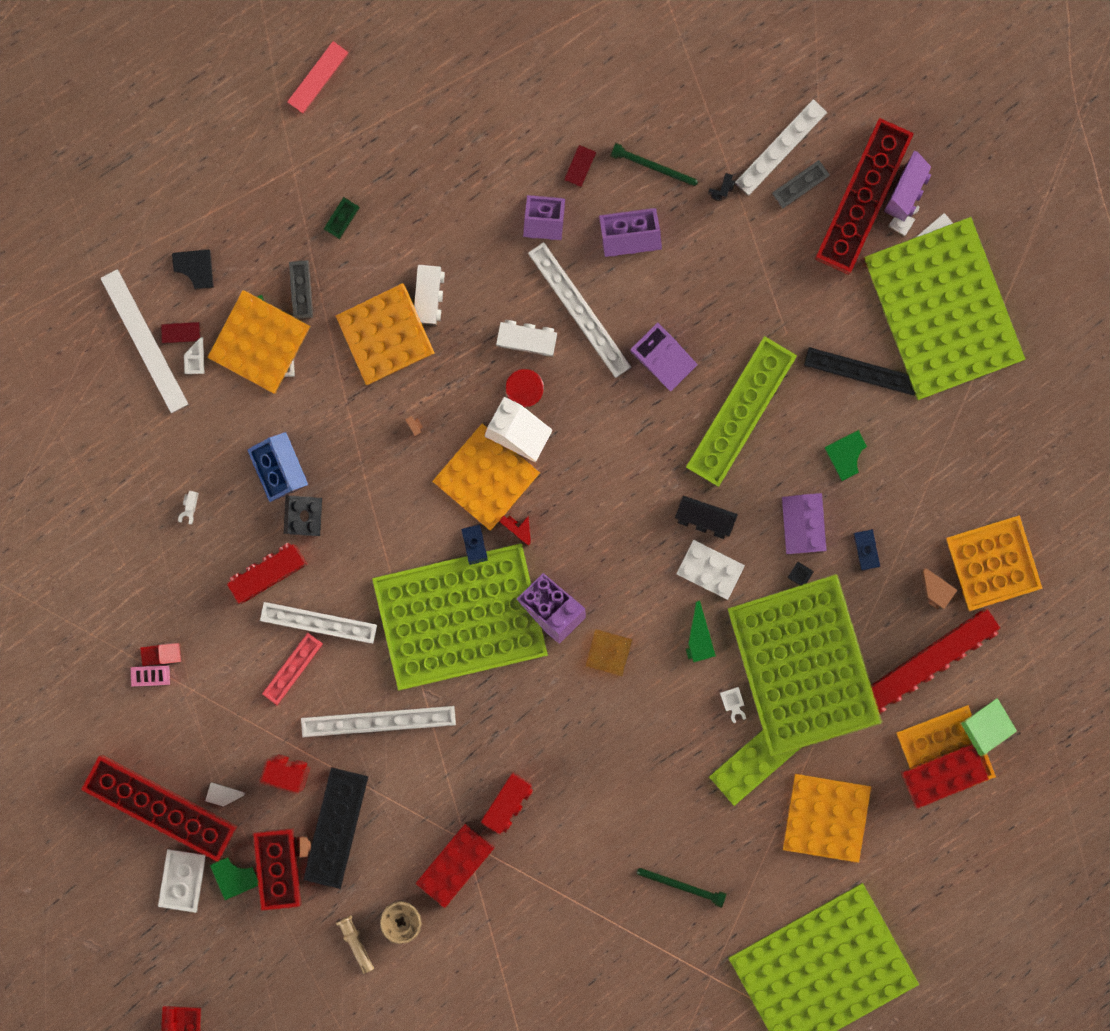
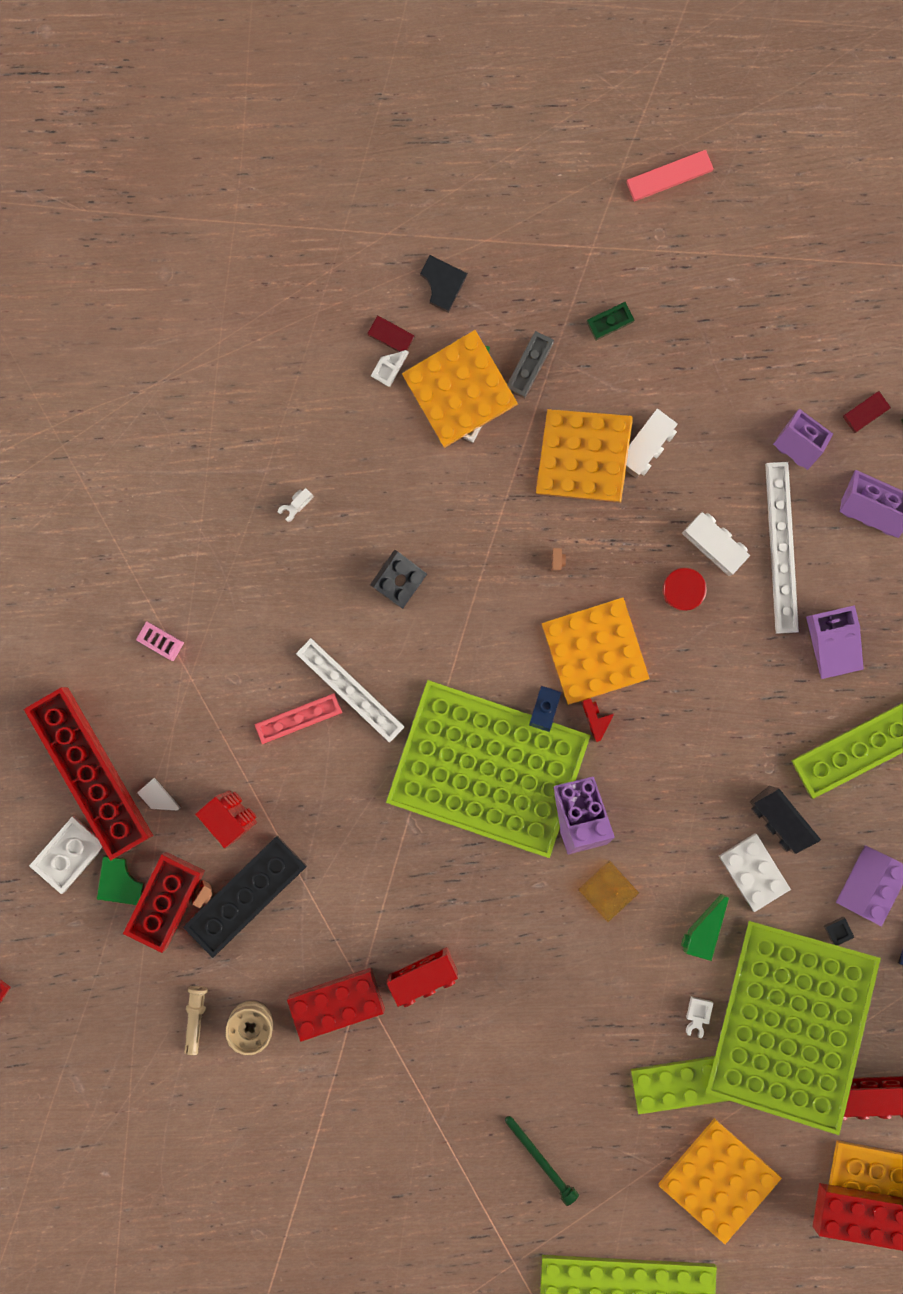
camera: 30 degrees right, 0 degrees up
(144, 341) = (351, 322): white tile -> none
(160, 654) = (182, 627): slope -> none
(266, 574) = (328, 613): red brick -> none
(277, 466) = (403, 518): blue slope -> none
(378, 721) = (348, 819): white tile -> none
(518, 430) = (654, 625): white slope -> none

